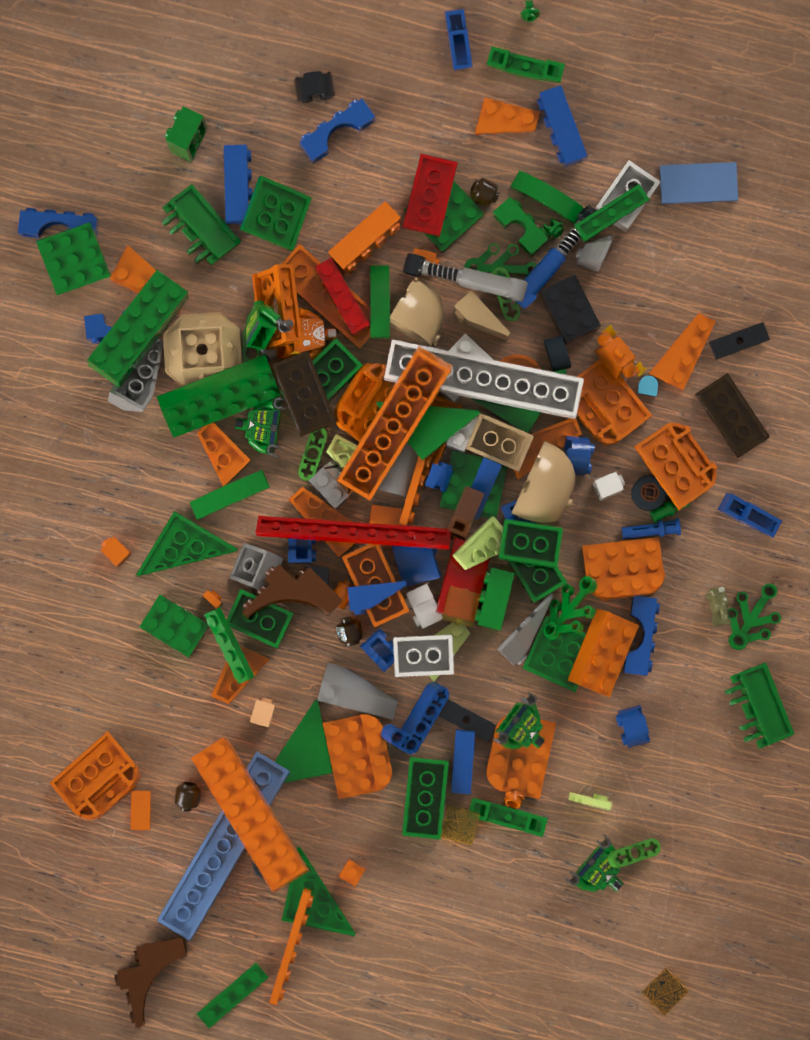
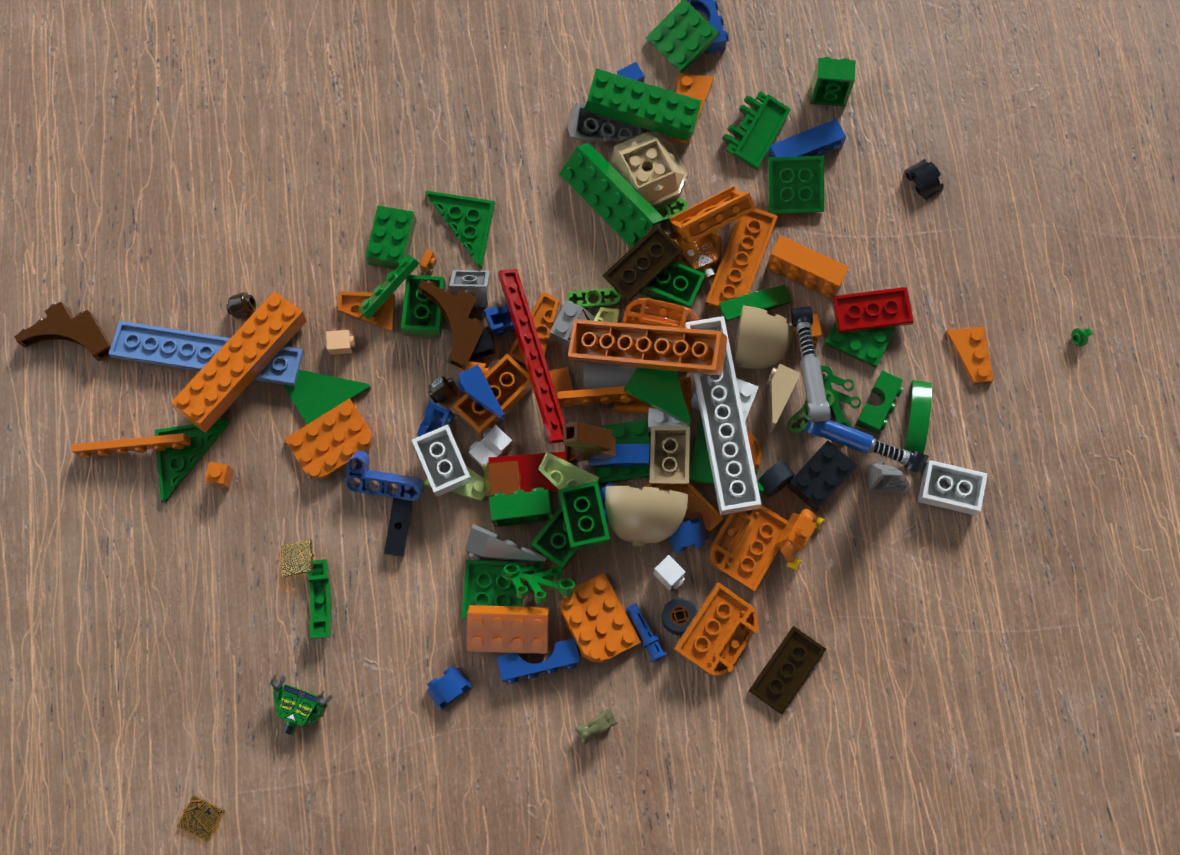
camera: 70 degrees right, 10 degrees down
(97, 779) = (231, 225): orange plate -> none
(115, 551) = (439, 165): orange brick -> none
(140, 810) = (216, 272): orange tile -> none
(222, 452) = (563, 222): orange wing -> none
(229, 494) = (527, 240): green slope -> none
(232, 995) = (72, 413): green plate -> none
(261, 326) = (685, 204): green torso -> none
(263, 426) = (600, 246): torso -> none
(342, 297) = (744, 266): red brick -> none
(351, 691) = (387, 409): light grey wedge -> none
(356, 116) = (913, 220): blue arch -> none
(416, 564) = (526, 425): blue slope -> none
(425, 798) = (310, 514): green brick -> none
(439, 476) = (616, 412): blue cylinder -> none
(458, 39) = (1026, 283): blue slope -> none
(463, 762) = (356, 537): blue slope -> none
(484, 191) = (897, 358): dark brown head -> none
(513, 799) = (338, 599): orange plate -> none
(520, 768) = (383, 589): orange plate -> none
(521, 725) = (407, 575): torso -> none
(525, 66) = (1029, 351): green slope -> none
(555, 230) = (890, 435): green plate -> none
(562, 126) = (989, 405): blue brick -> none
(597, 800) = (359, 675): yellowish green wing -> none
(611, 213) = (930, 475): green plate -> none
(627, 852) = (329, 748): bright green beam -> none
(648, 386) = (781, 577): medium azure tile -> none
(667, 509) = (669, 639): green pin -> none
(682, 356) = (822, 599): orange wing -> none
(698, 183) = (995, 552): medium blue tile -> none
(749, 514) = (697, 723): blue slope -> none
(750, 337) = (871, 657): black tile -> none
(750, 619) = (596, 764): green plant -> none
(762, 704) = (516, 807): green hinge -> none

